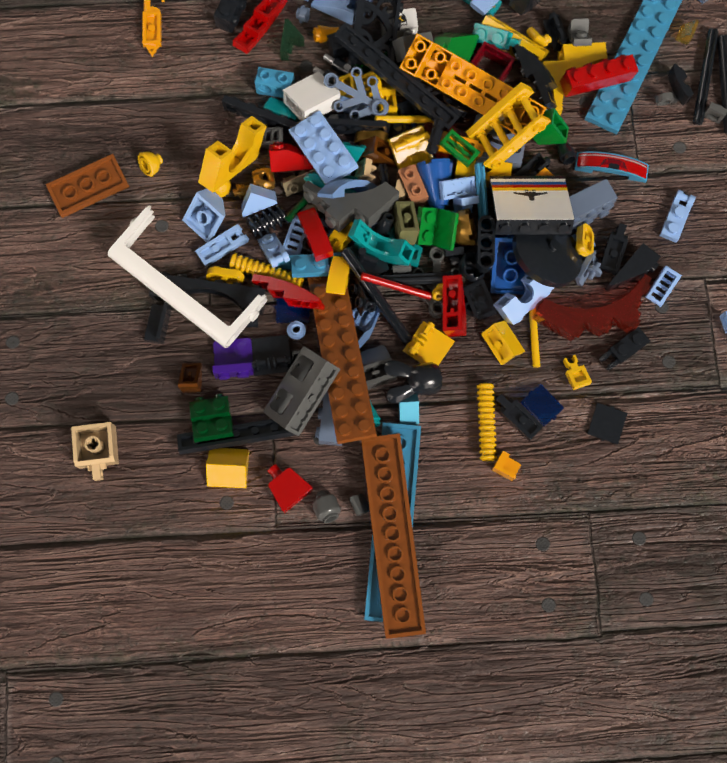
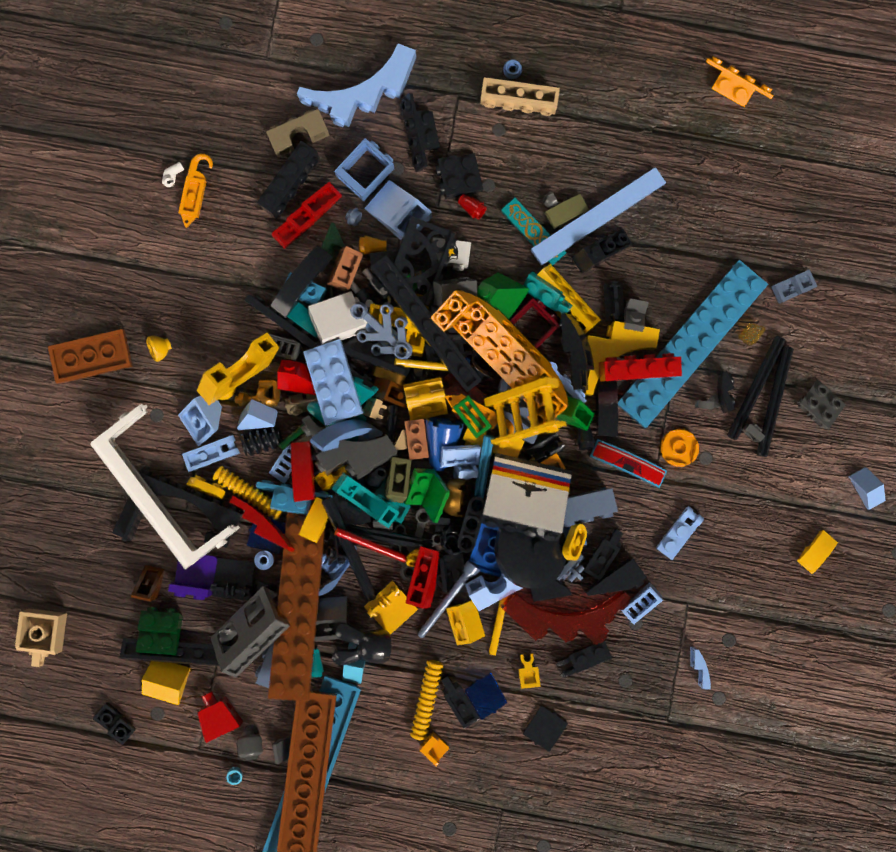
camera: 15 degrees right, 10 degrees up
(126, 15) = (170, 174): none -> white arm
(186, 520) = (116, 723): none -> black slope
(269, 71) = (300, 280): none -> black slope
(273, 249) = (258, 475): light blue plate -> none
(307, 55) = (345, 268): none -> nougat brick
(321, 544) = (235, 778): none -> medium azure hinge
(435, 136) = (450, 399): black axle -> none
(494, 291) = (470, 570): none -> sand blue piece
(536, 37) = (590, 302): yellow arm -> none
(572, 292) = (550, 591): none -> black slope
(578, 123) = (607, 408): none -> black slope
(653, 143) = (679, 447): none -> light orange tile

